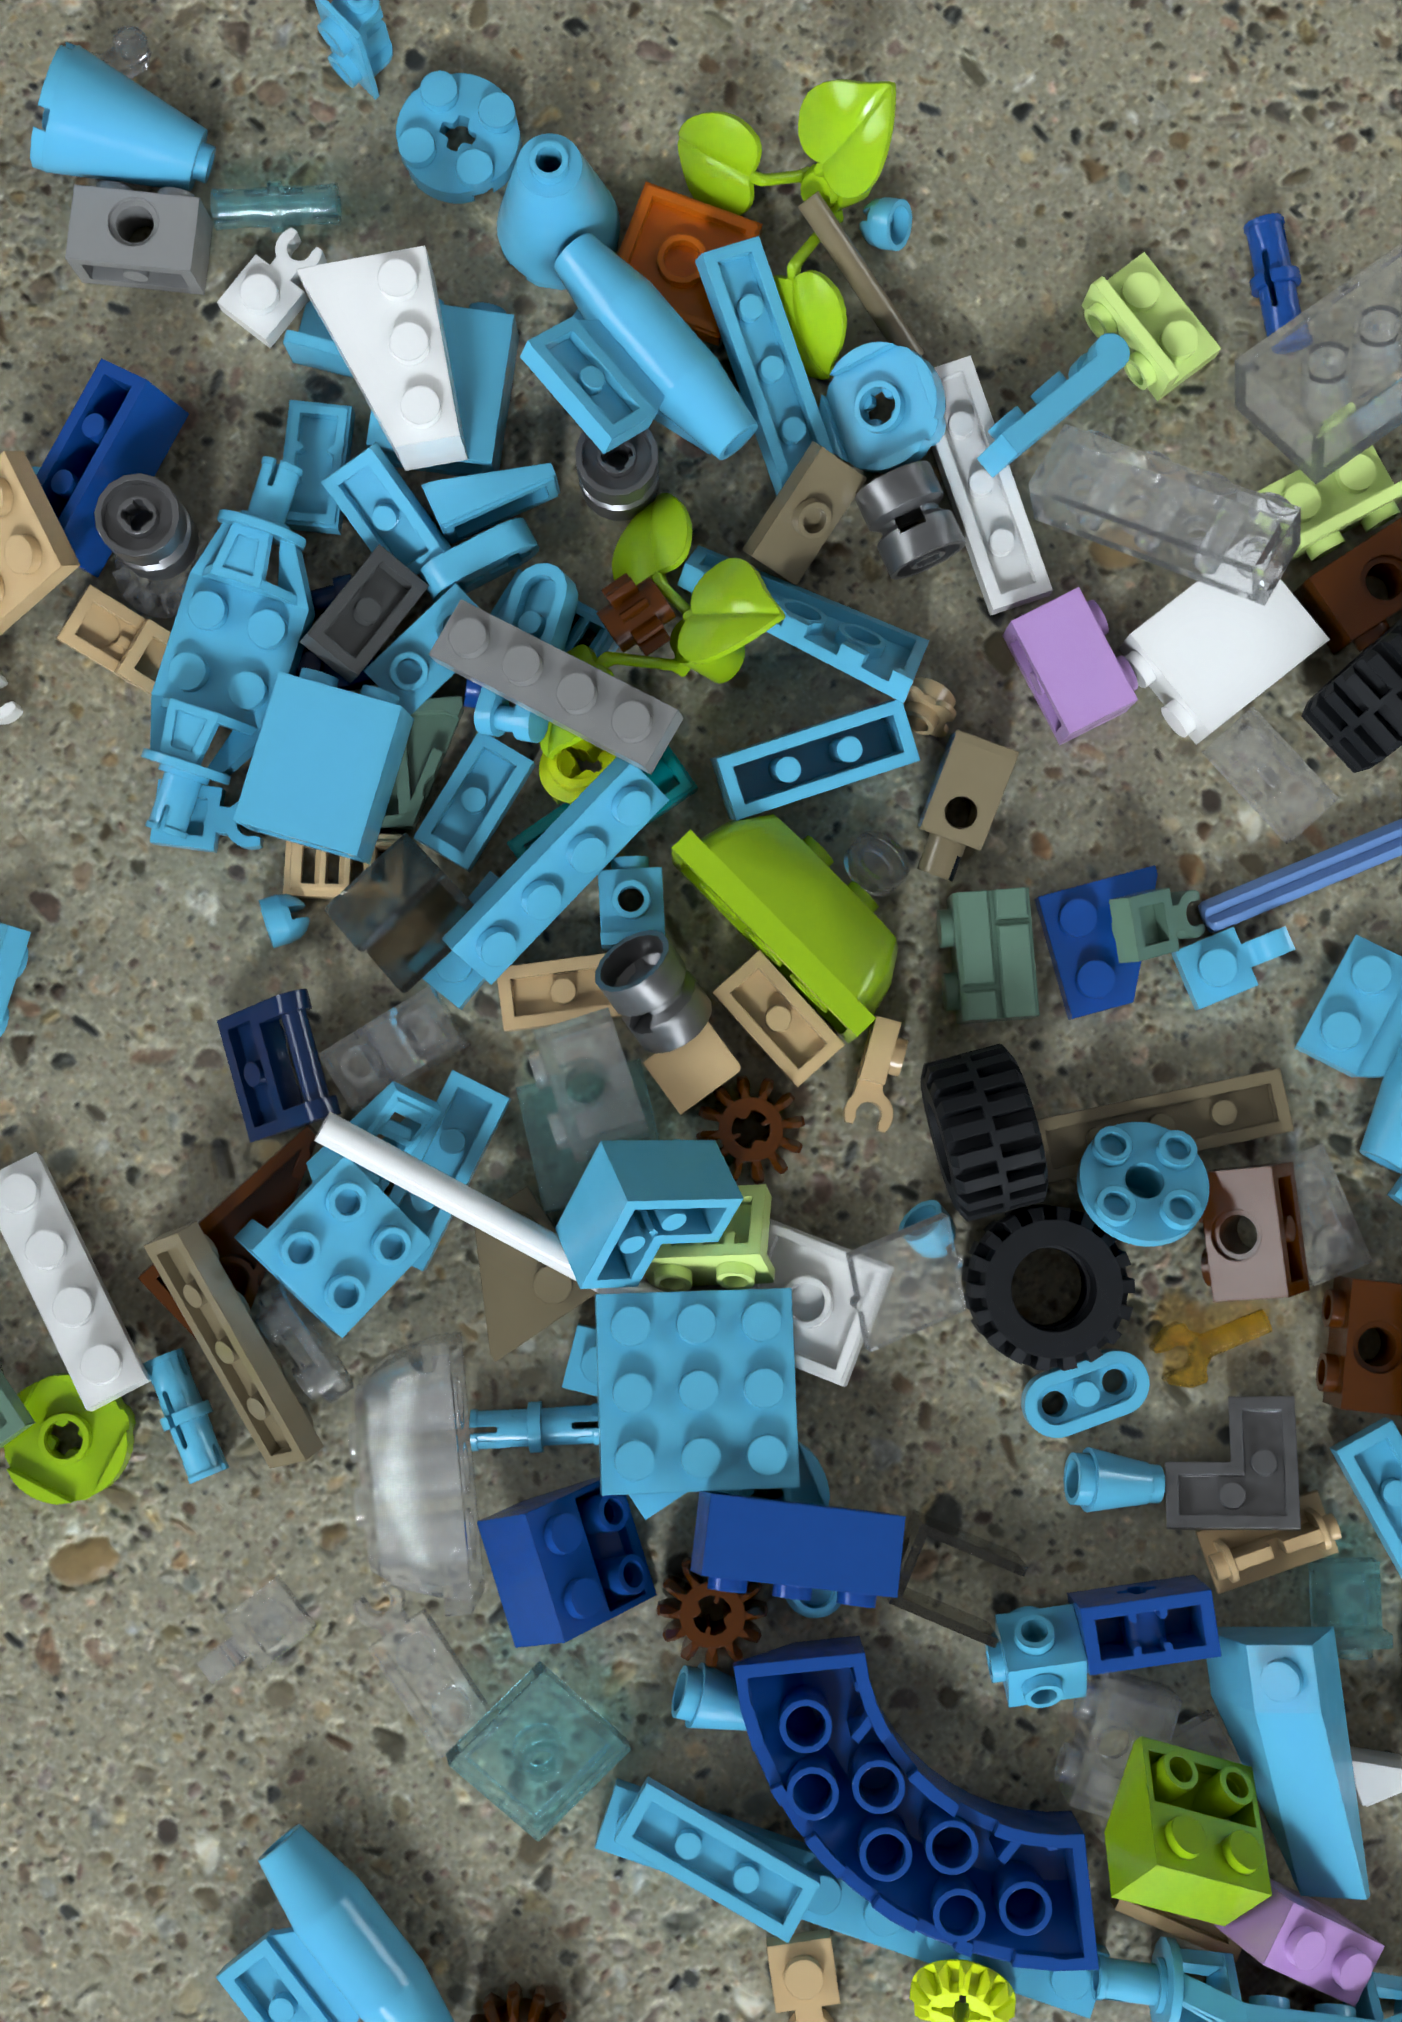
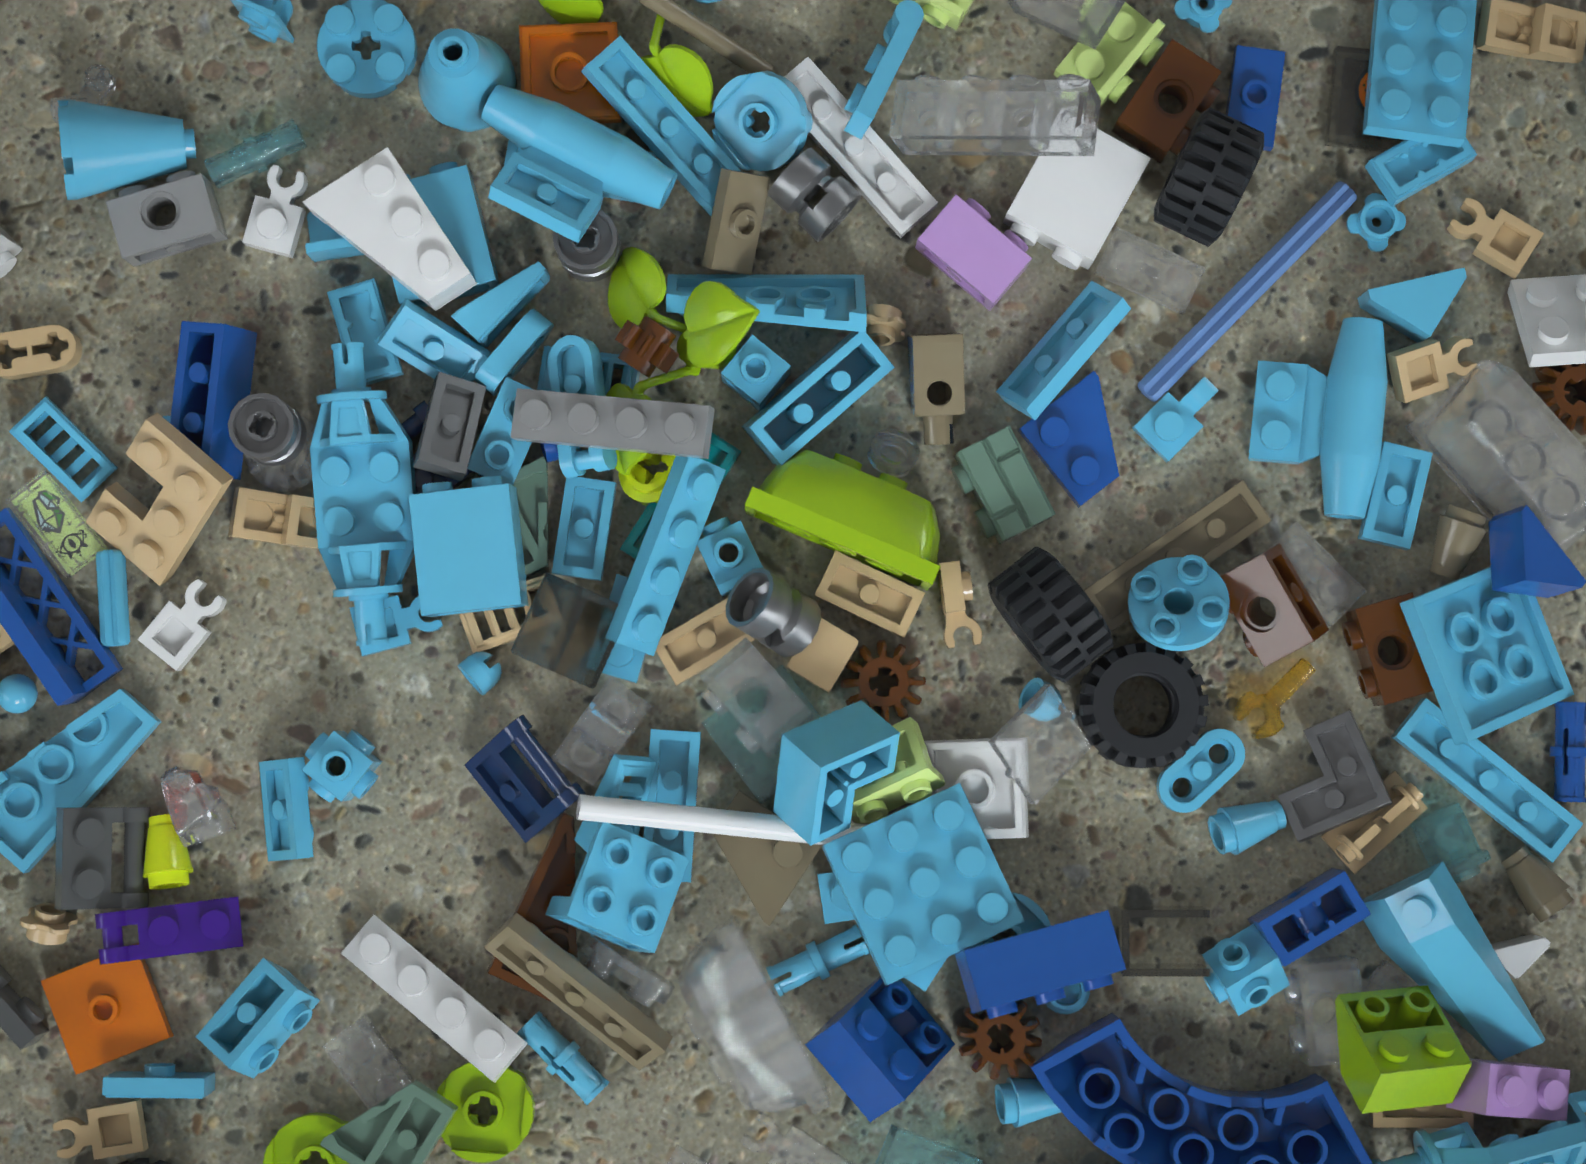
camera: 25 degrees left, 0 degrees up
(90, 966) = (359, 761): none -> medium azure brick
(753, 701) = (756, 373): none -> medium azure brick
(1129, 825) = (1063, 350): none -> medium azure plate
(1151, 923) = (1108, 414): sand green plate -> none

